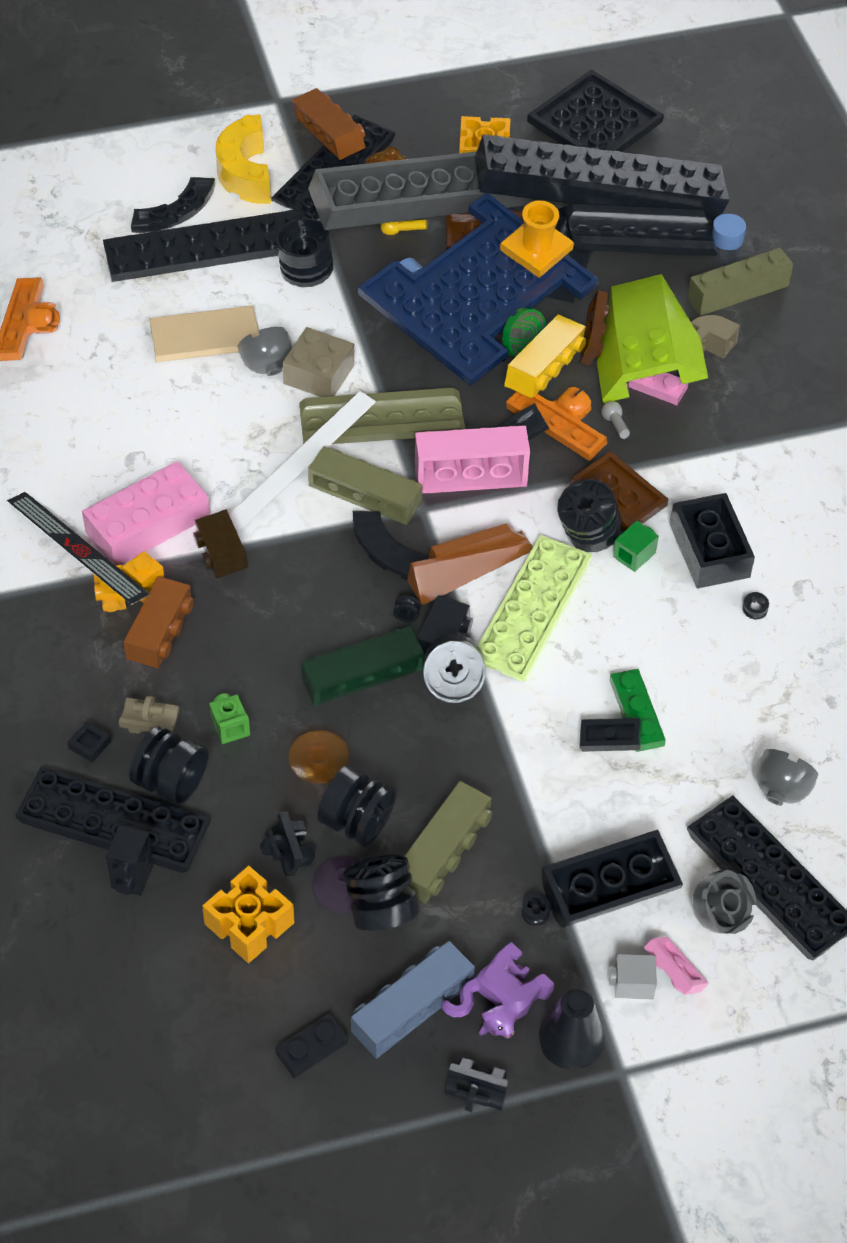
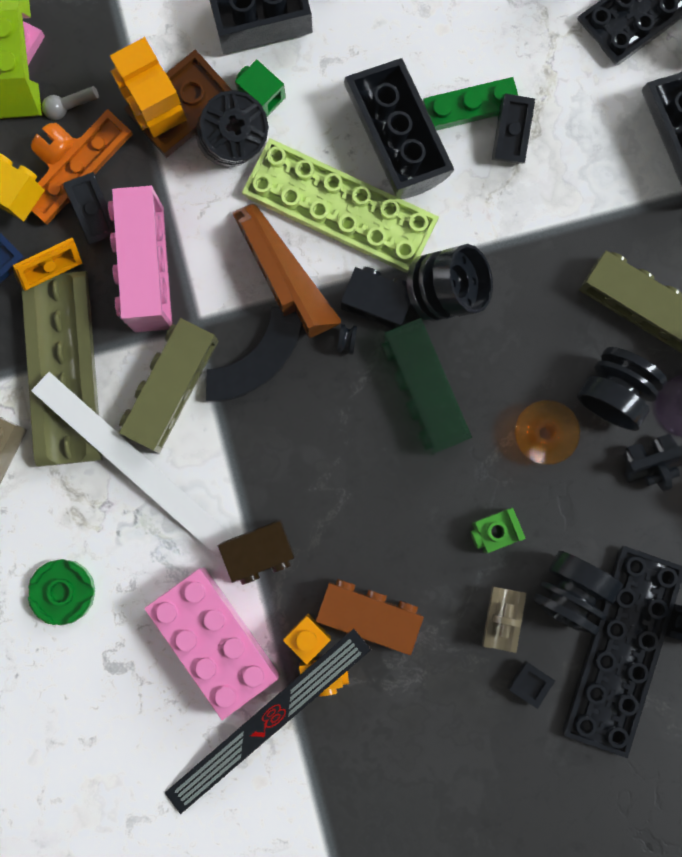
camera: 90 degrees left, 30 degrees up
(194, 422) = (61, 592): none -> green tile
(468, 401) = (47, 264): none -> light orange slope
(601, 639) = (399, 128): none -> black brick
(619, 452) = (147, 88): none -> light orange brick

